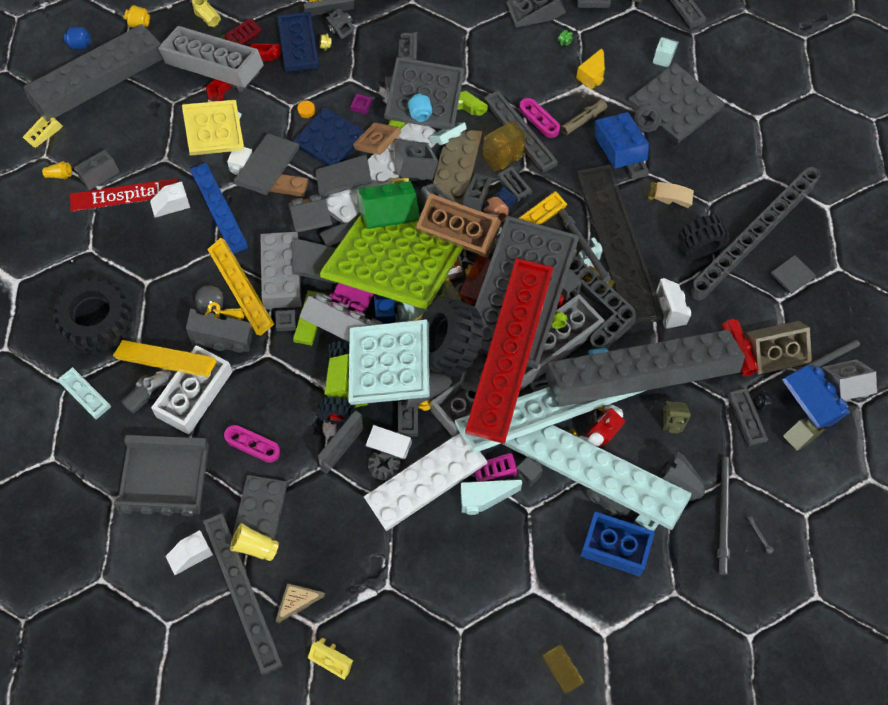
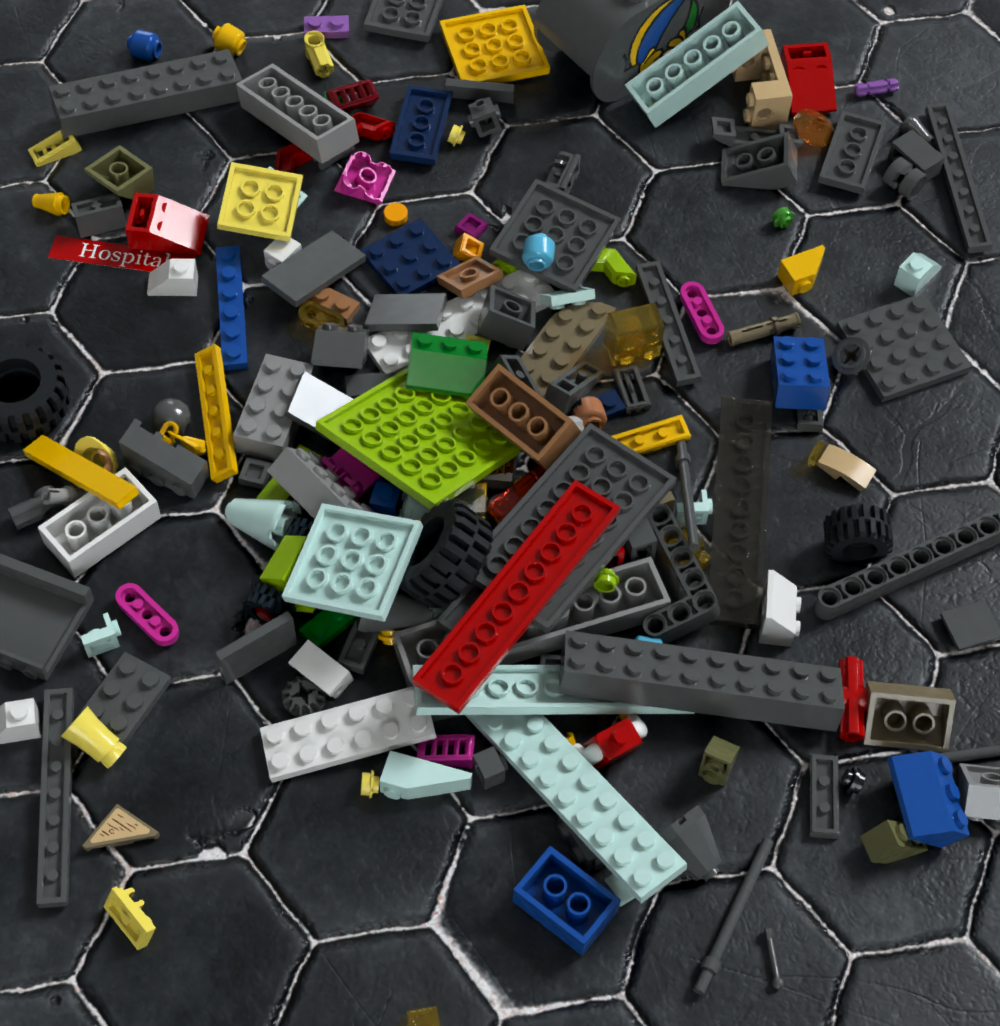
camera: 20 degrees right, 5 degrees down
(103, 135) = (122, 173): none -> olive slope
(148, 163) = (165, 225): none -> red slope
(170, 340) = (97, 453): none -> light yellow piece
(229, 471) = (103, 639): none -> light aqua bracket
(274, 90) = (365, 179): none -> dark pink slope
(285, 195) = (321, 315): none -> clear yellow plate
(306, 351) = (262, 518): none -> light aqua cone
(364, 118) = (467, 248): none -> light orange slope
(377, 413) = (325, 627): none -> green plate
(453, 510) = (369, 784): none -> light yellow plate

